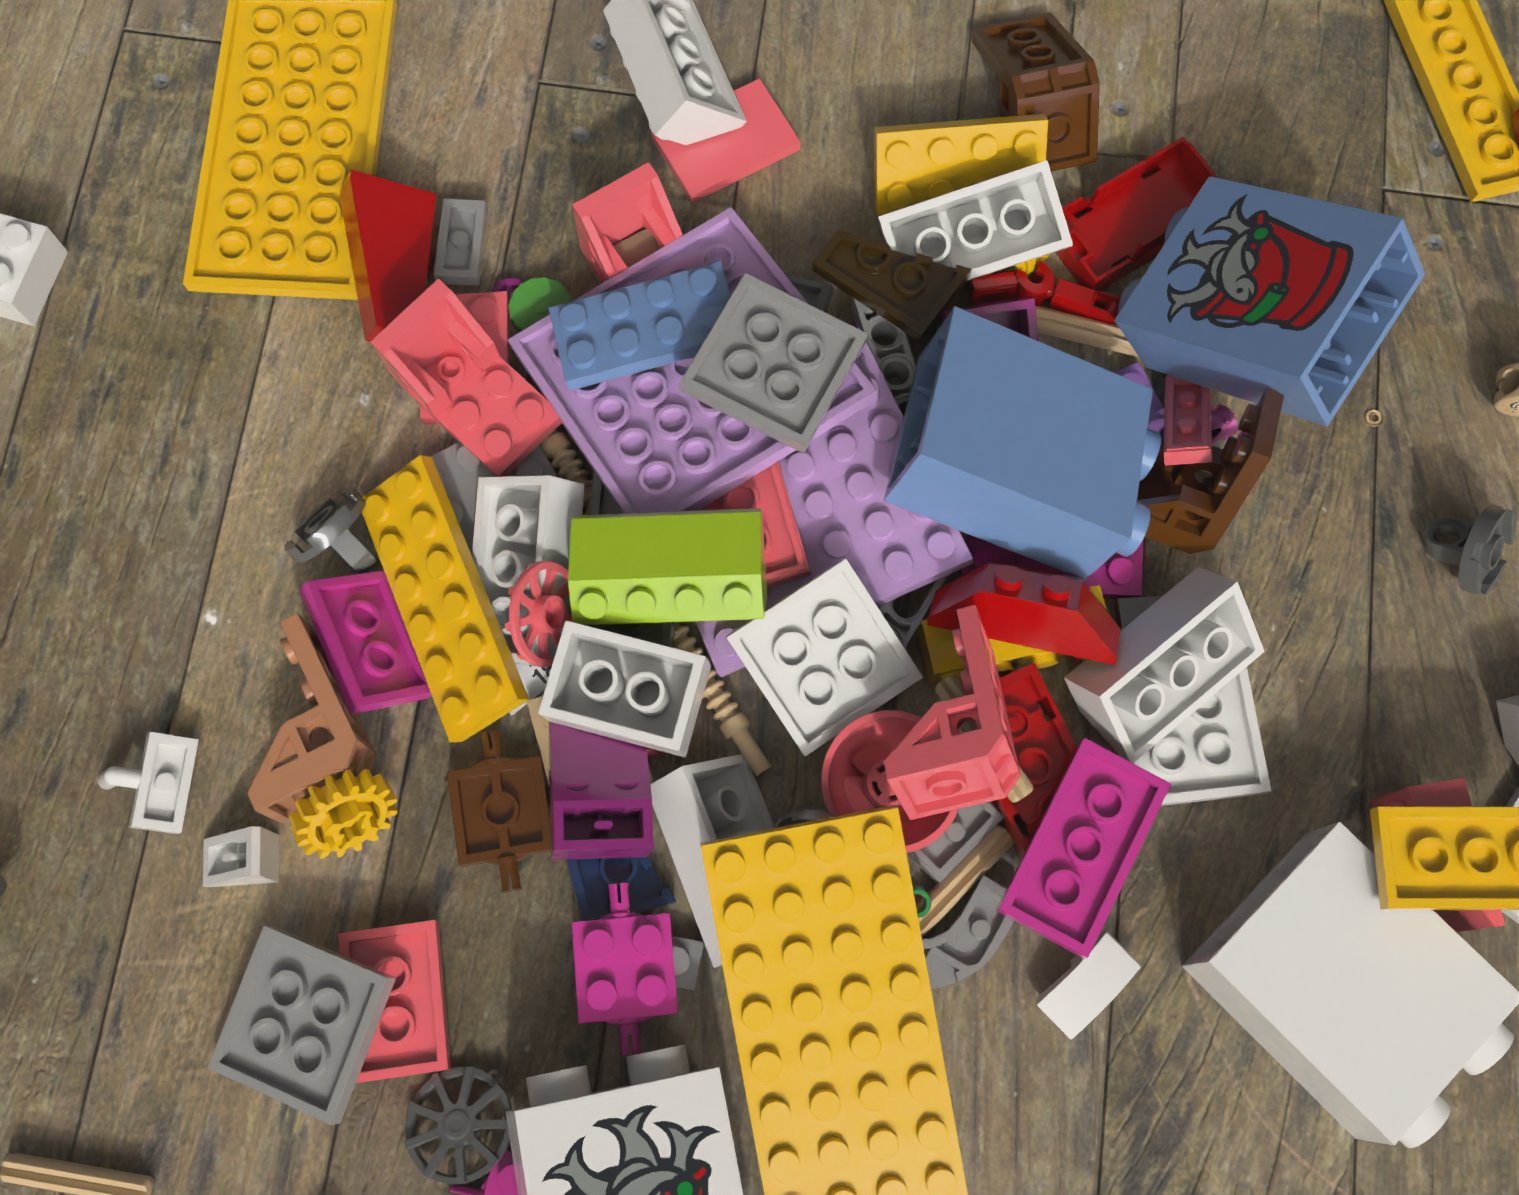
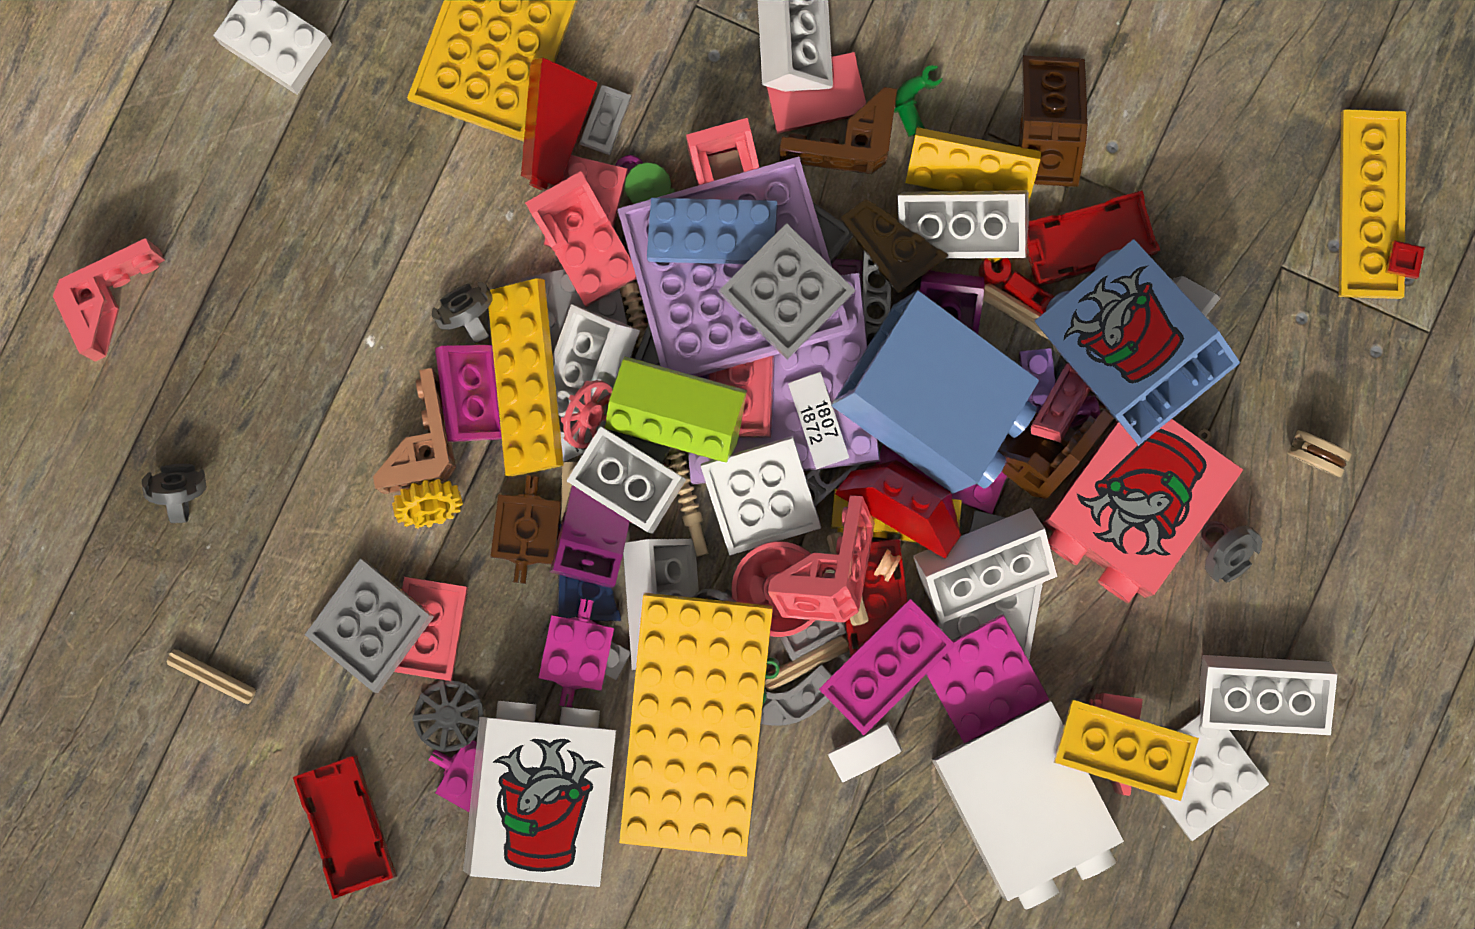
camera: 25 degrees right, 10 degrees up
(160, 783) = (314, 446): white plate -> none
(241, 858) = (353, 510): white slope -> none
(803, 191) = (867, 126): none -> reddish brown bracket
(846, 119) = (905, 99): none -> green piece
(871, 531) = (818, 420): none -> white sticker
(992, 288) = (965, 266): red tile -> none
(1034, 701) = (887, 565): none -> light nougat bush
(1223, 825) = (986, 679): none -> dark pink plate
(1347, 524) = (1139, 506): none -> brick

